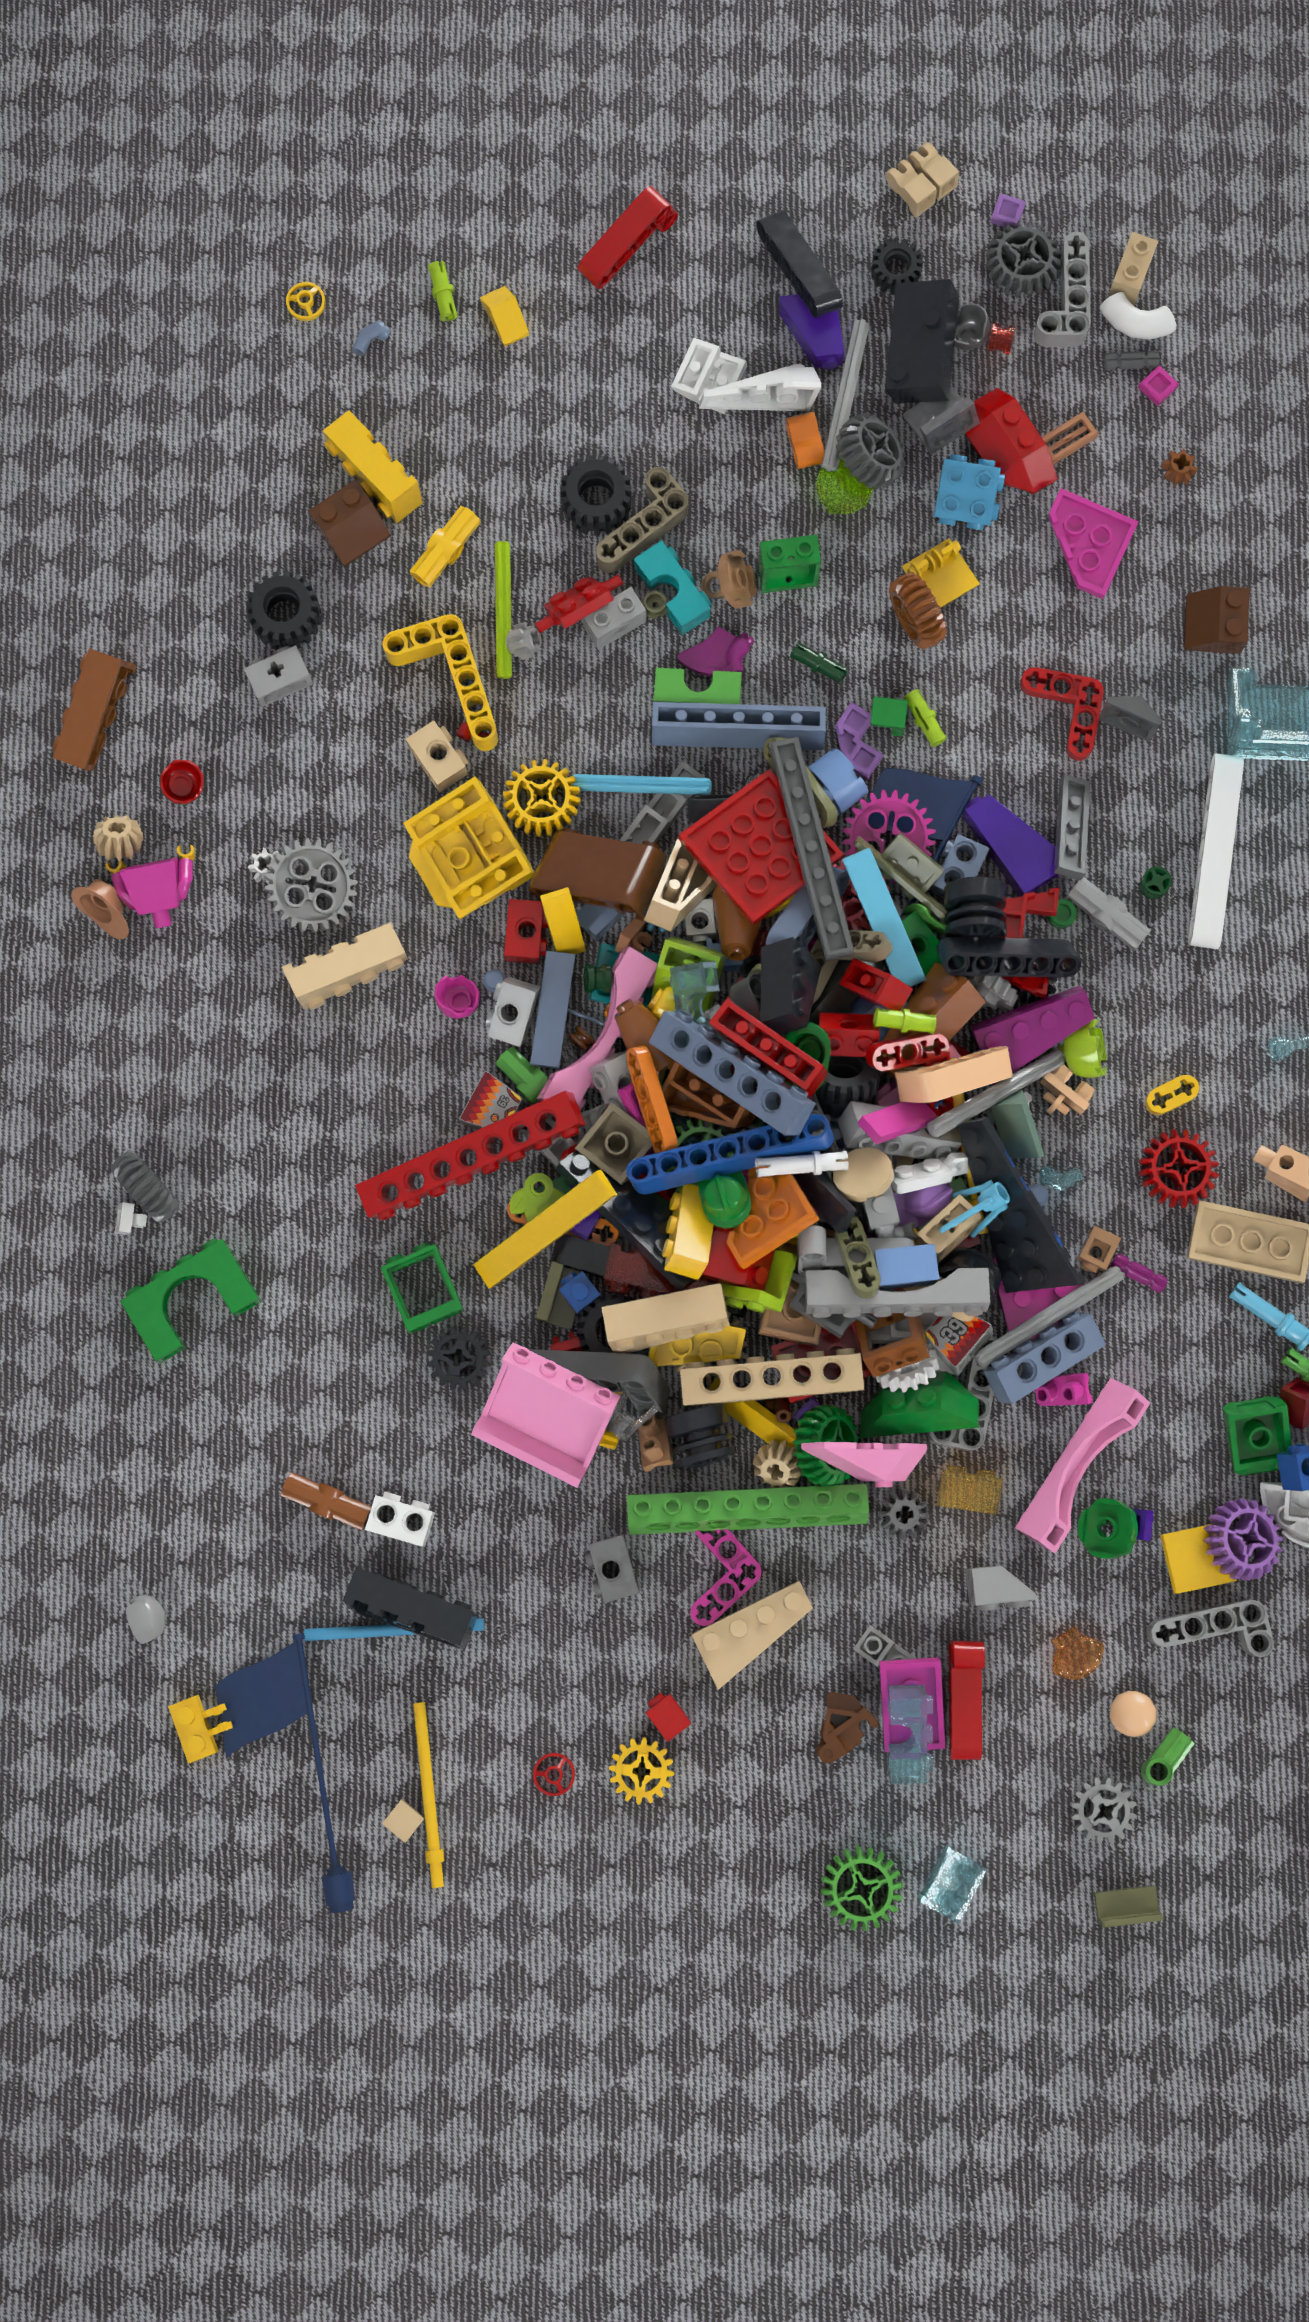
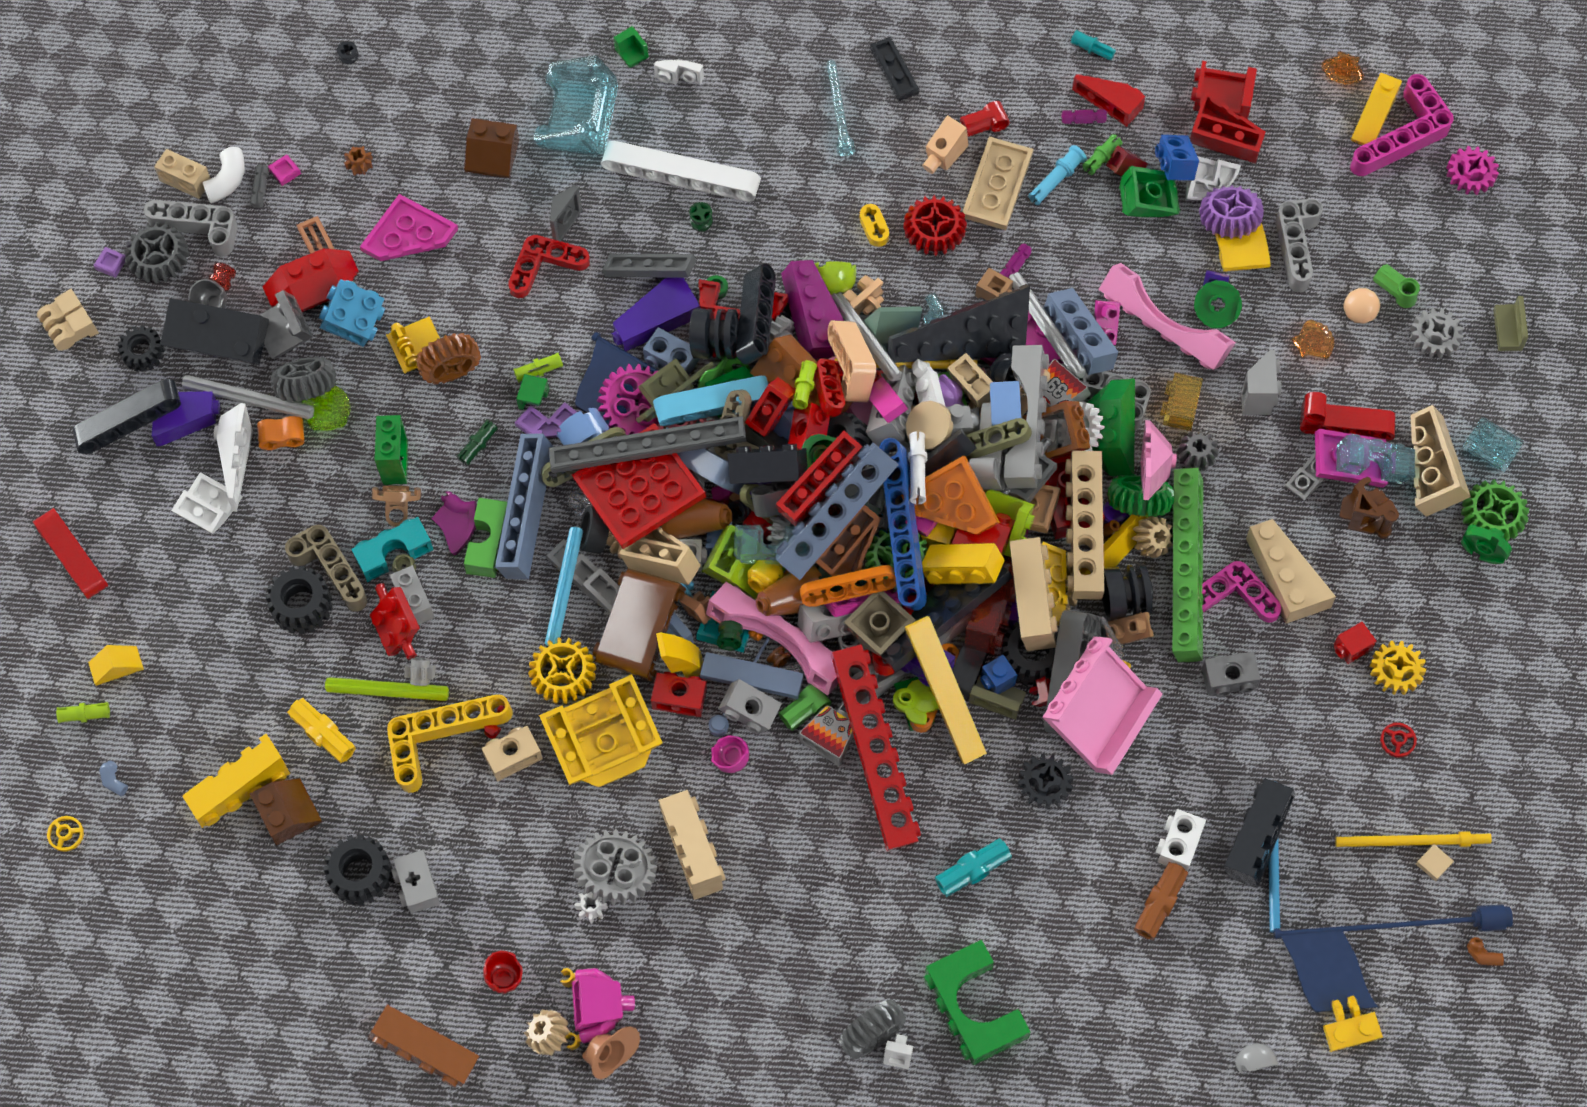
camera: 85 degrees left, 15 degrees down
(295, 1878) = (1481, 955): none -> dark orange arm
(348, 1284) = (973, 867): none -> teal piece
(397, 1263) = (977, 784): green window -> none
(725, 1199) = (939, 533): green piece -> none
(809, 1878) = (1486, 543): none -> green plate
(916, 1811) = (1437, 469): none -> tan wedge
(992, 1198) = (956, 341): medium azure plant -> none
(1108, 913) = (722, 251): light grey piece -> none

